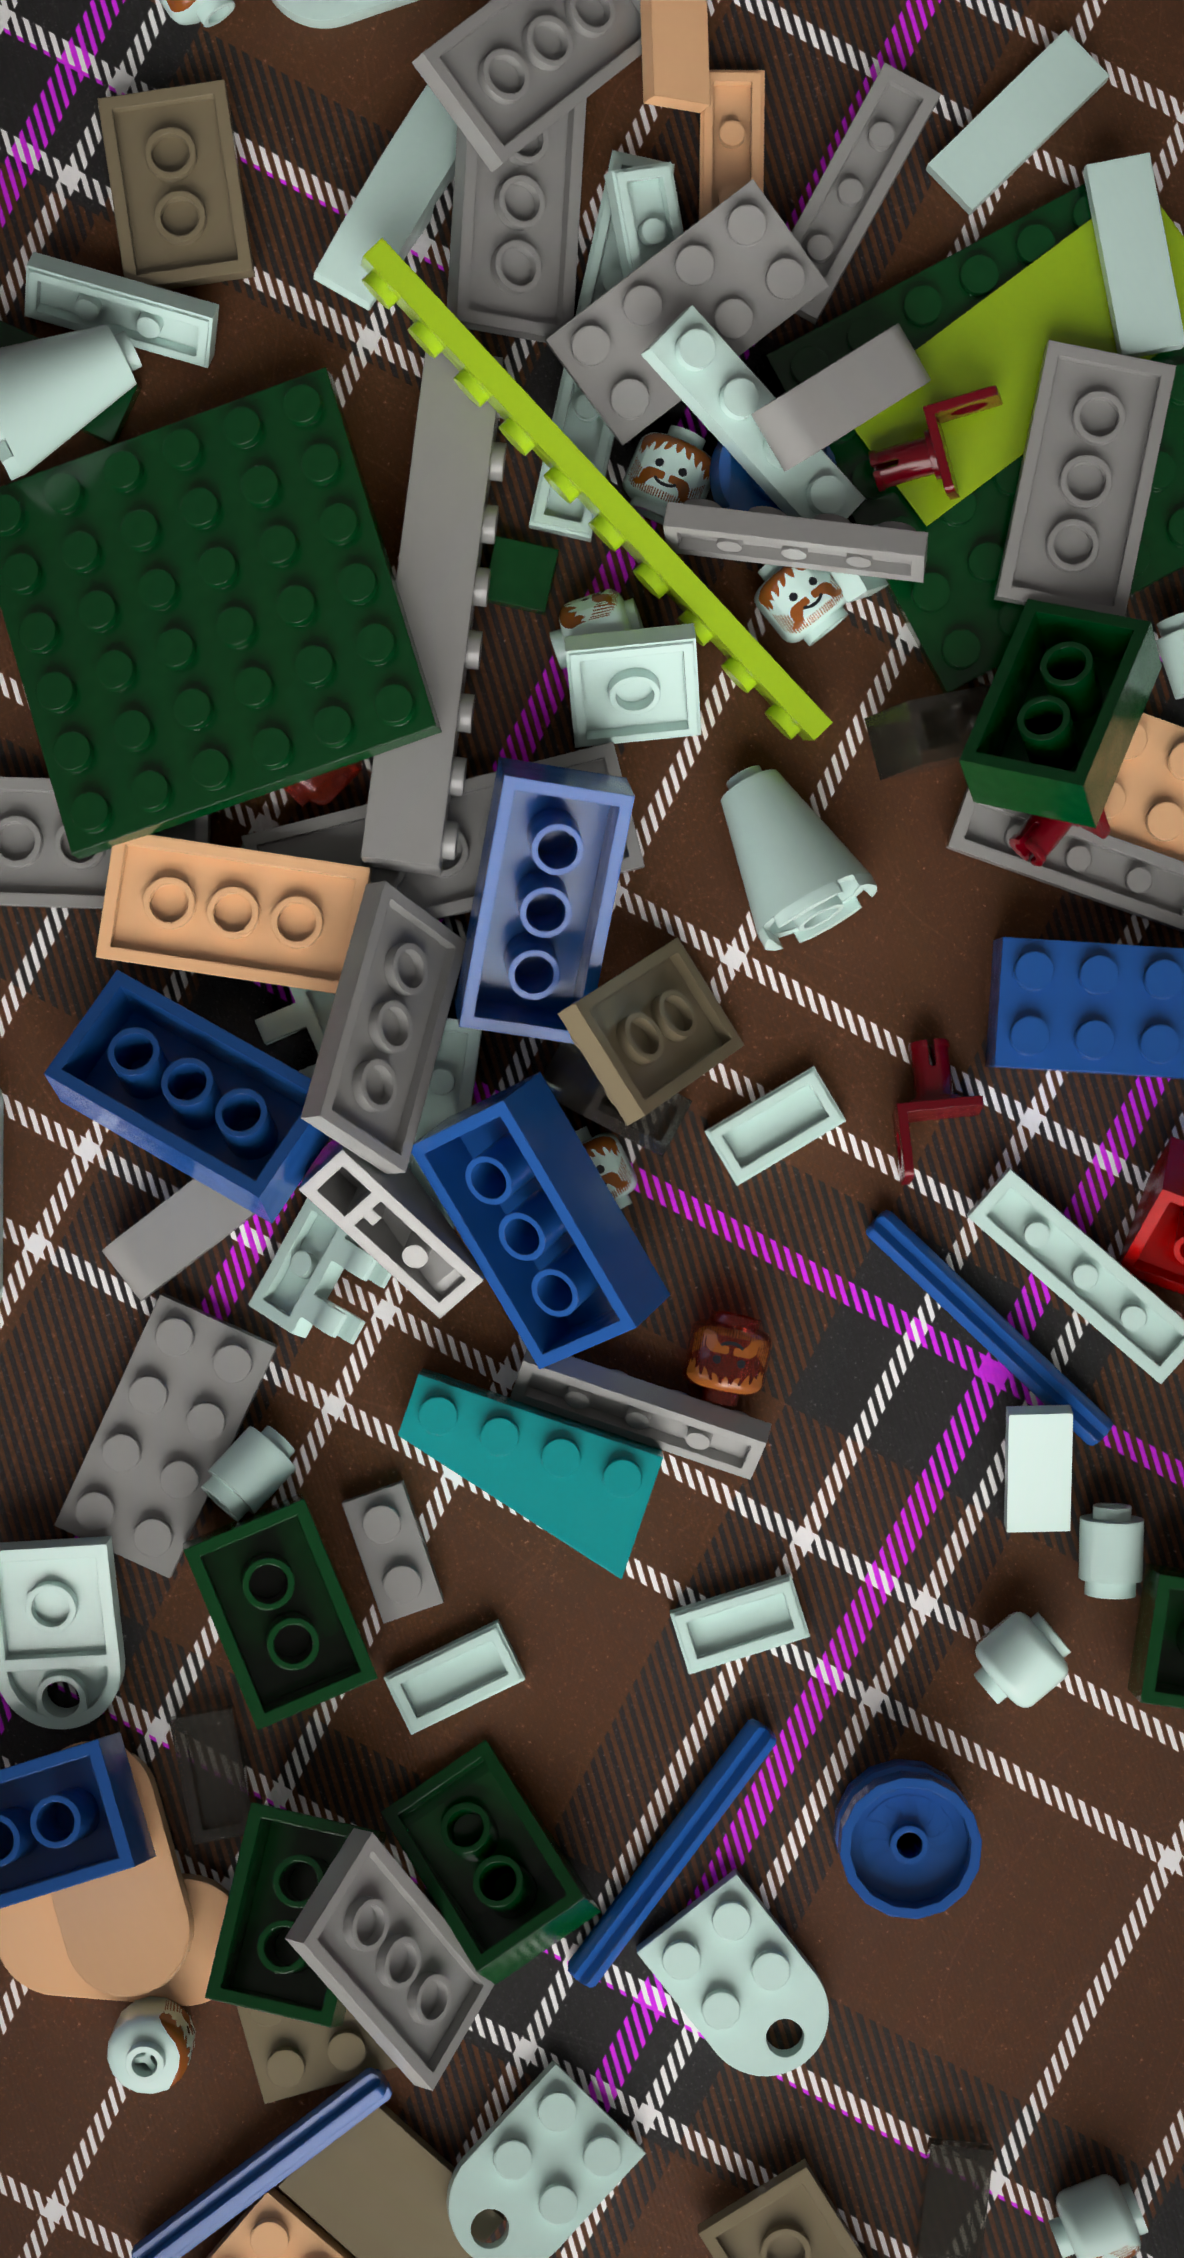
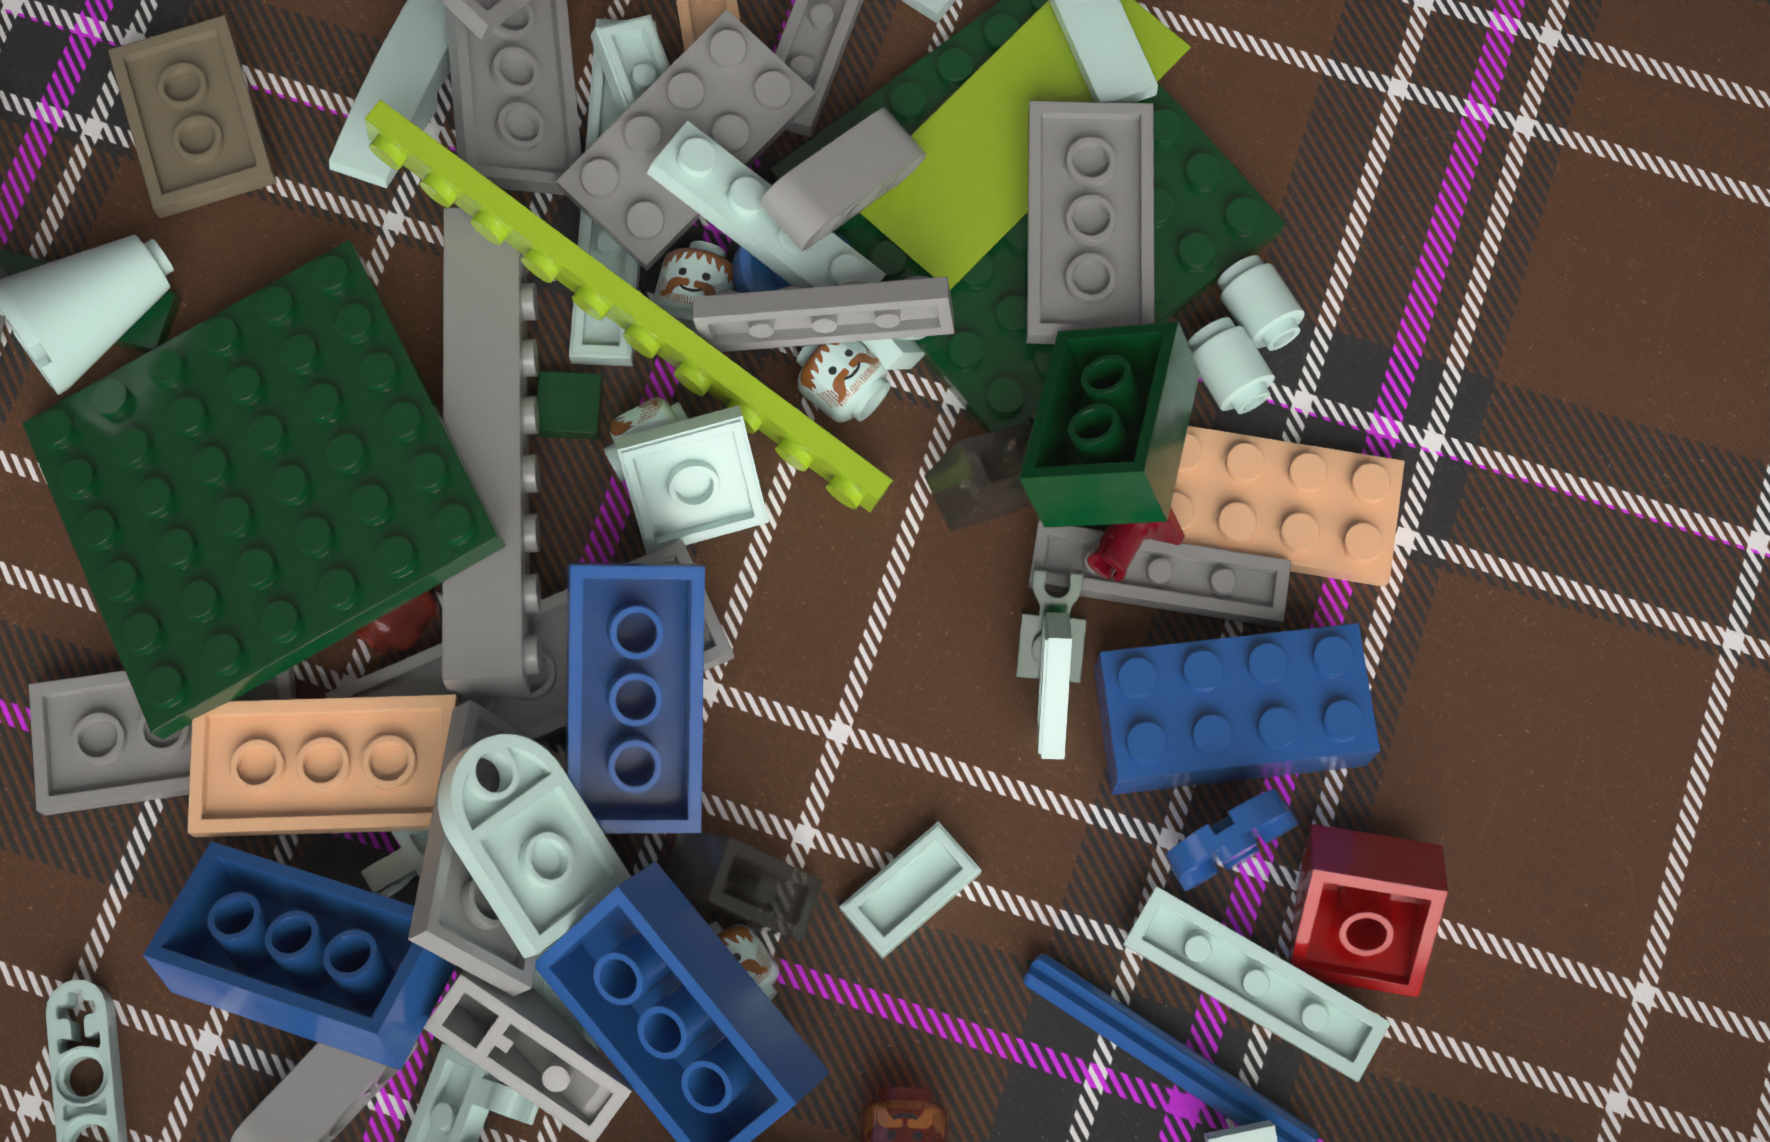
camera: 15 degrees left, 15 degrees down
(150, 315) = (184, 229): light aqua tile -> none
(425, 1036) = (529, 842): none -> light aqua plate
(651, 1031) = (763, 805): dark tan plate -> none
(789, 860) = (878, 623): light aqua cone -> none
(930, 453) = (936, 220): dark red bracket -> none
(933, 1099) = (1064, 835): dark red bracket -> none
(951, 959) = (1054, 685): none -> light aqua tile
(960, 903) = (1032, 623): none -> plate
(1091, 1140) = (1230, 839): none -> blue plate

